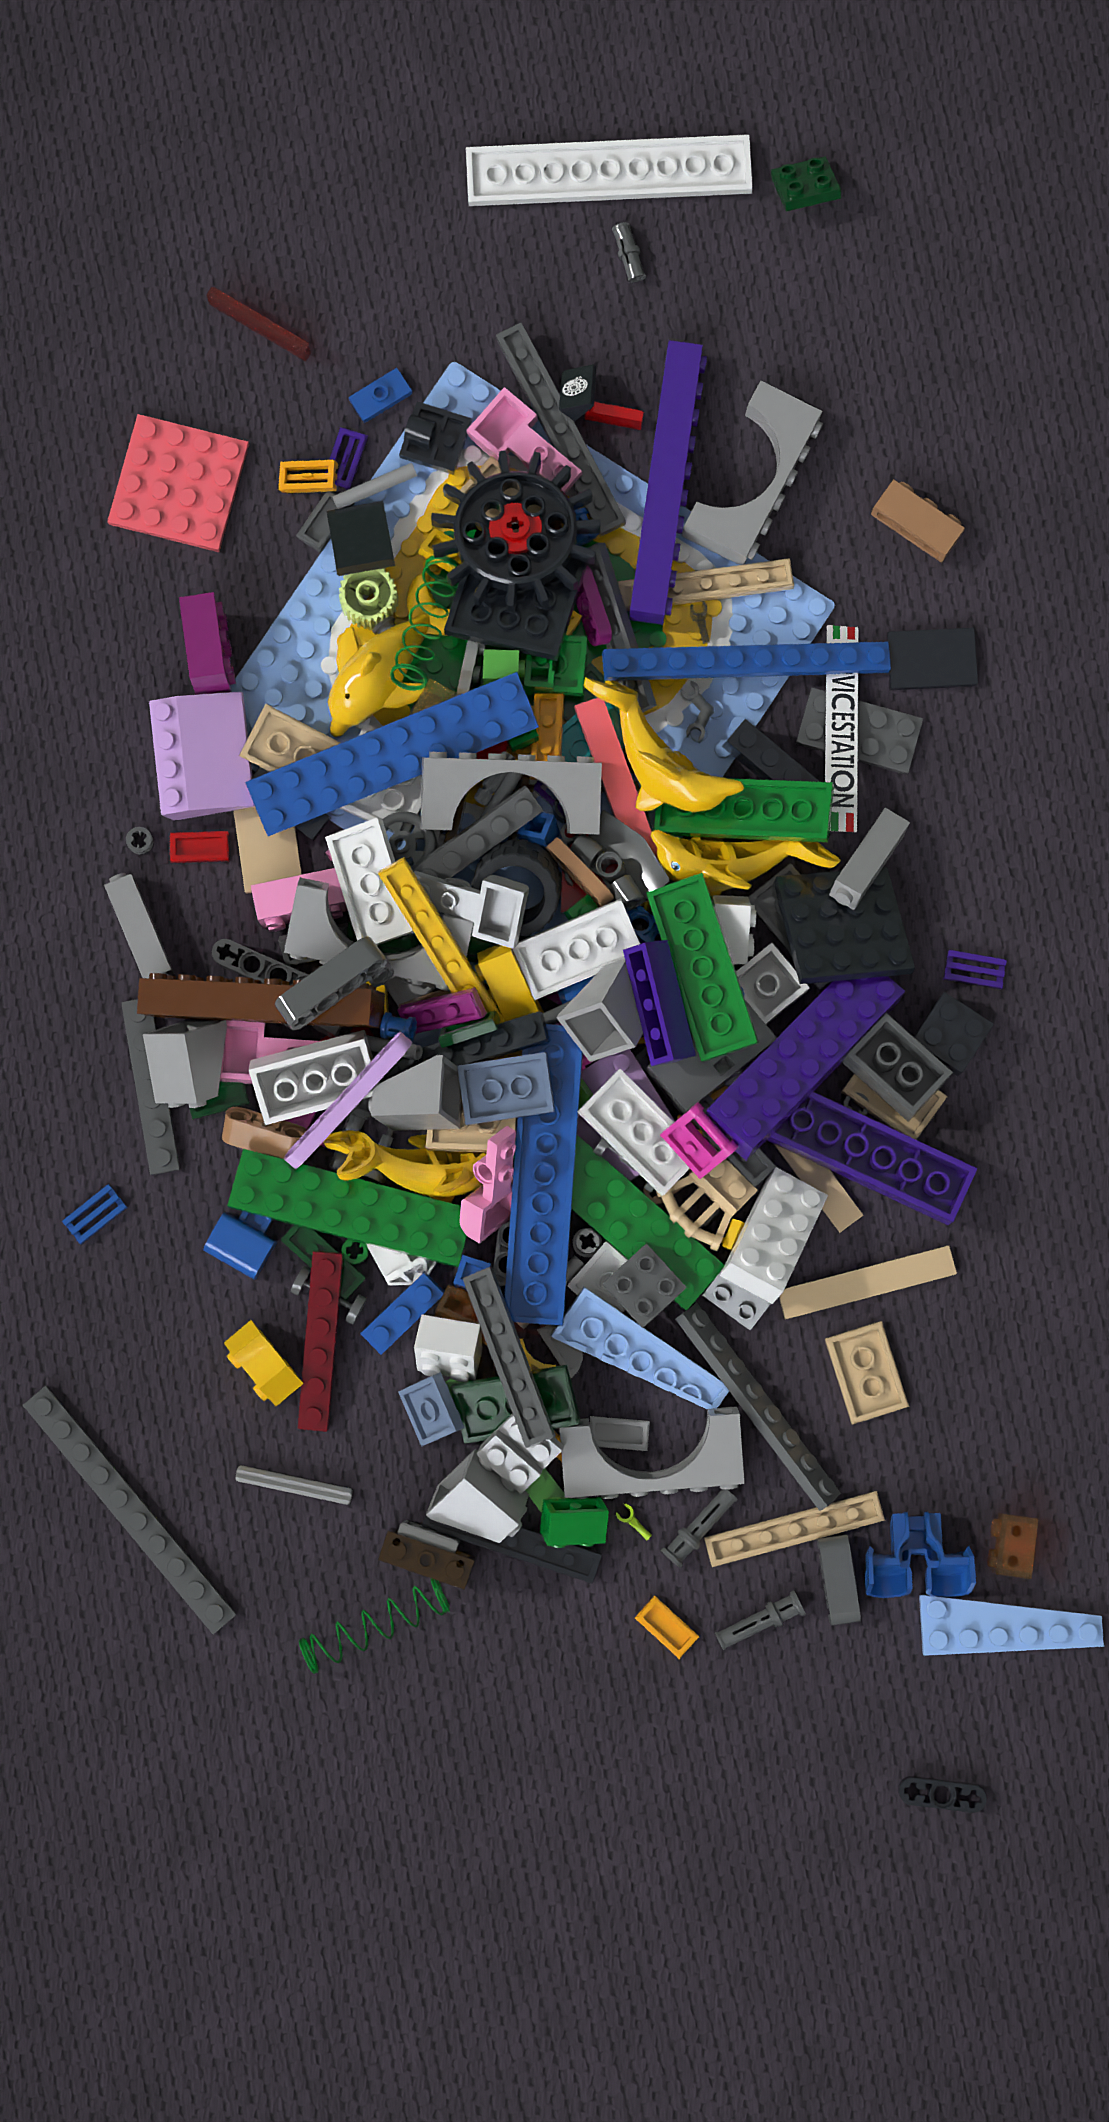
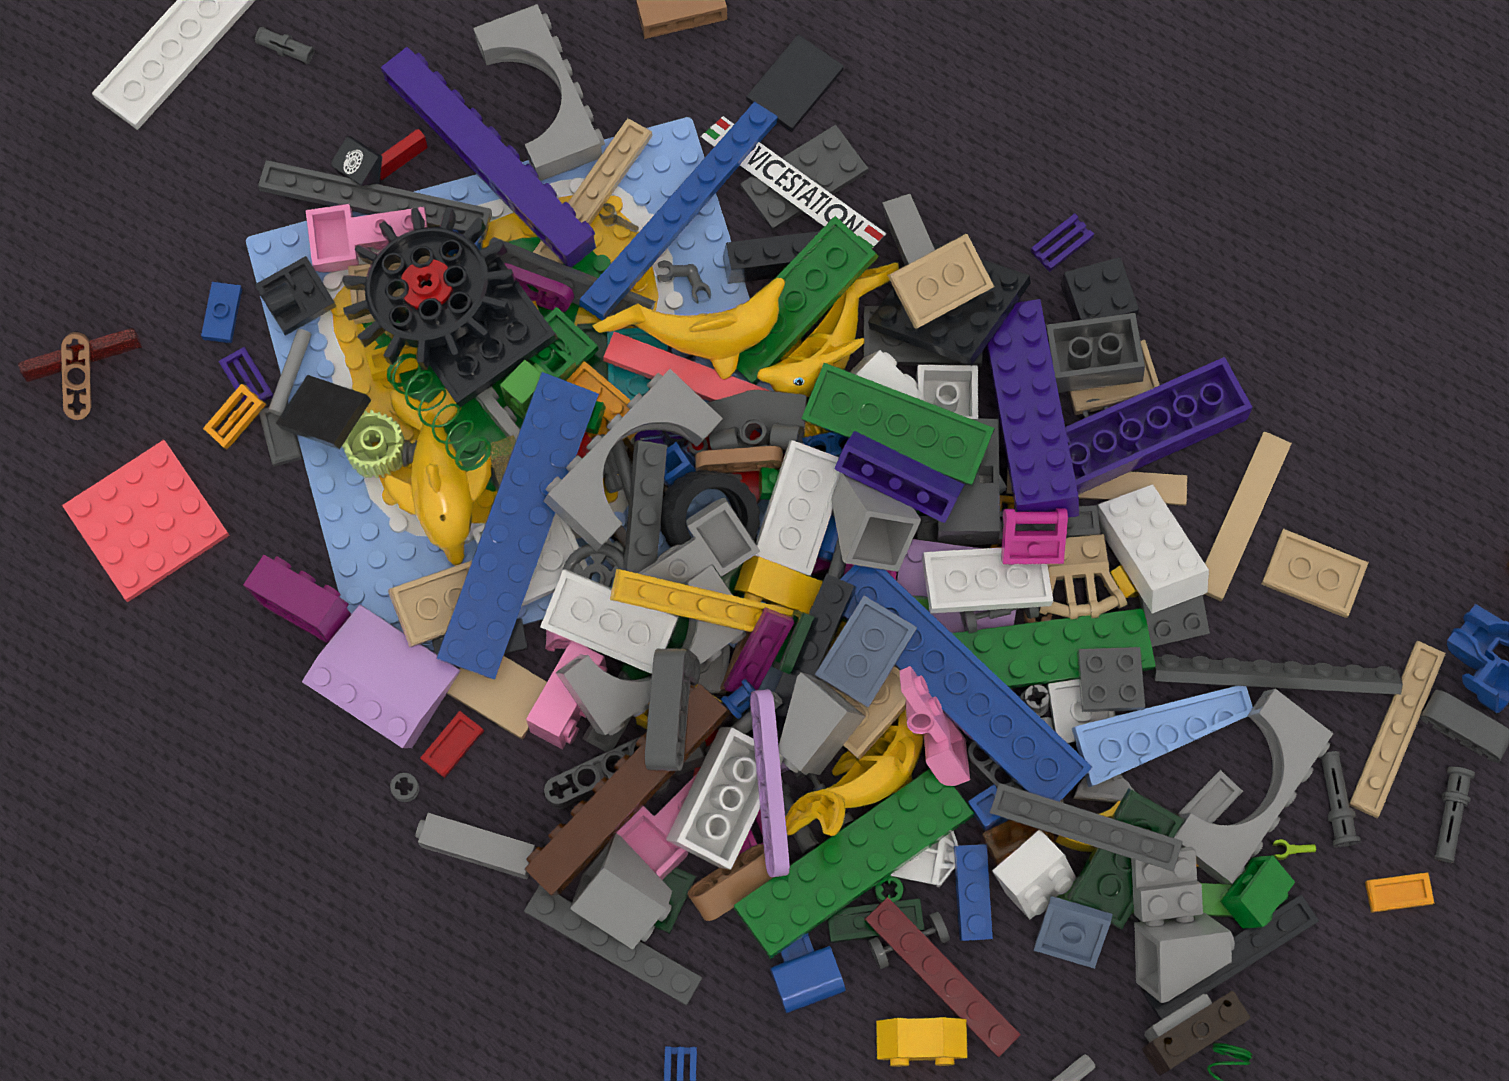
camera: 50 degrees left, 10 degrees down
(257, 327) = (68, 398): none -> medium nougat beam
(847, 905) = (940, 281): none -> tan tile

